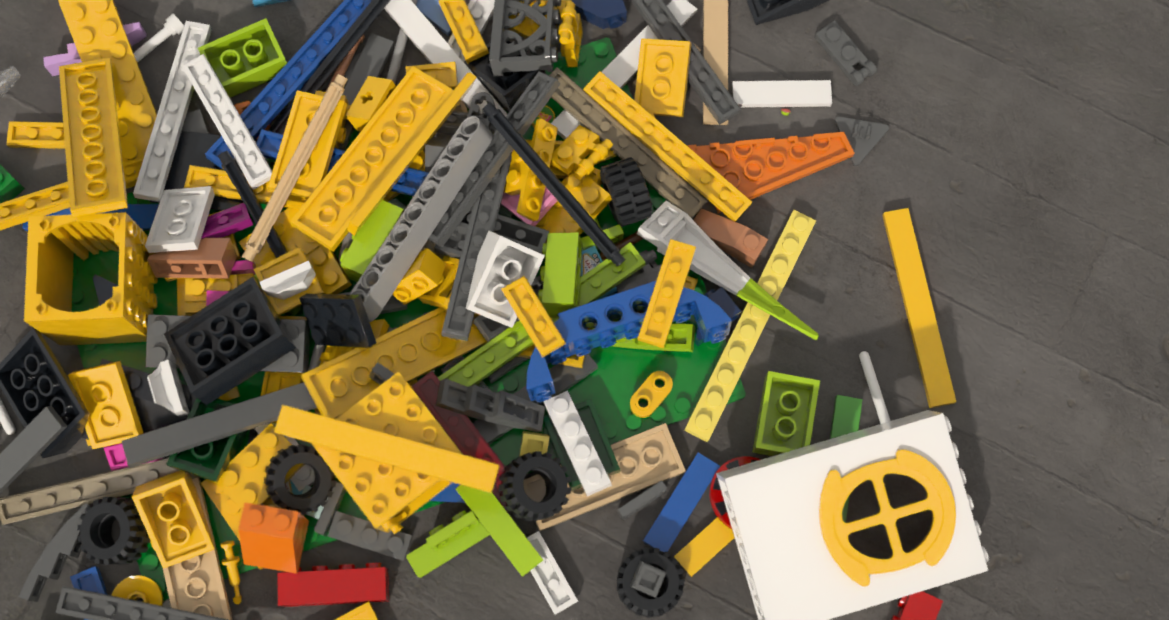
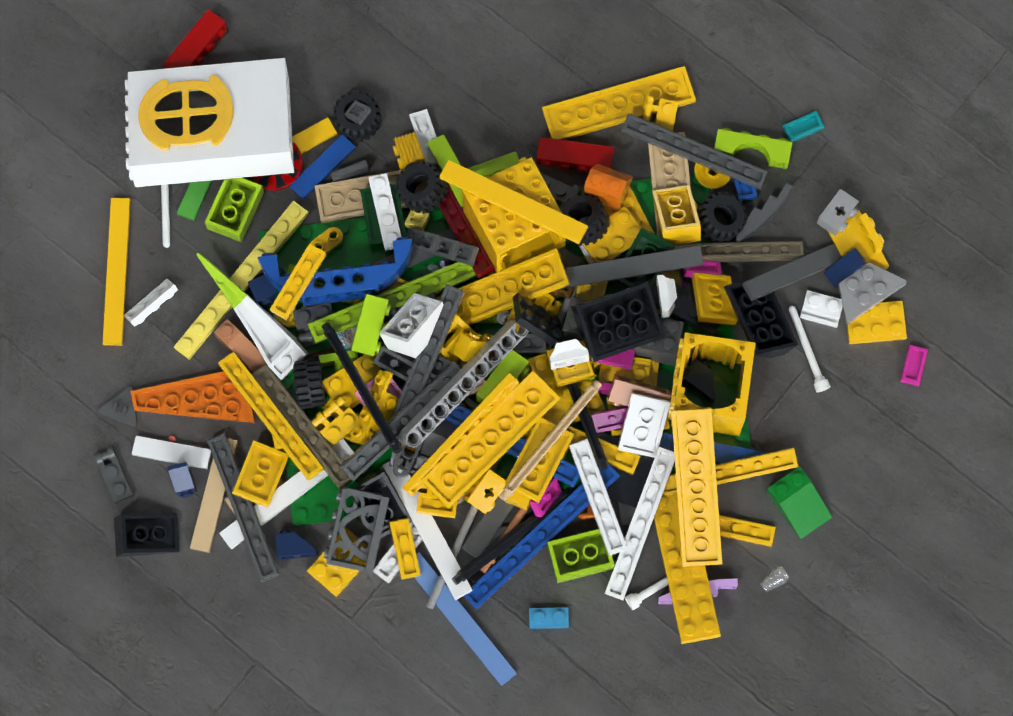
camera: 165 degrees left, 0 degrees up
(232, 569) = (643, 184): yellow piece -> none
(380, 374) = (511, 271): dark grey tile -> none
(533, 316) = (396, 287): yellow tile -> none
(563, 540) = (408, 150): none -> yellow brick
(570, 34) = (321, 526): yellow plate -> none
(758, 57) = (182, 479): none -> slope
(861, 271) = (151, 302): none -> white plate

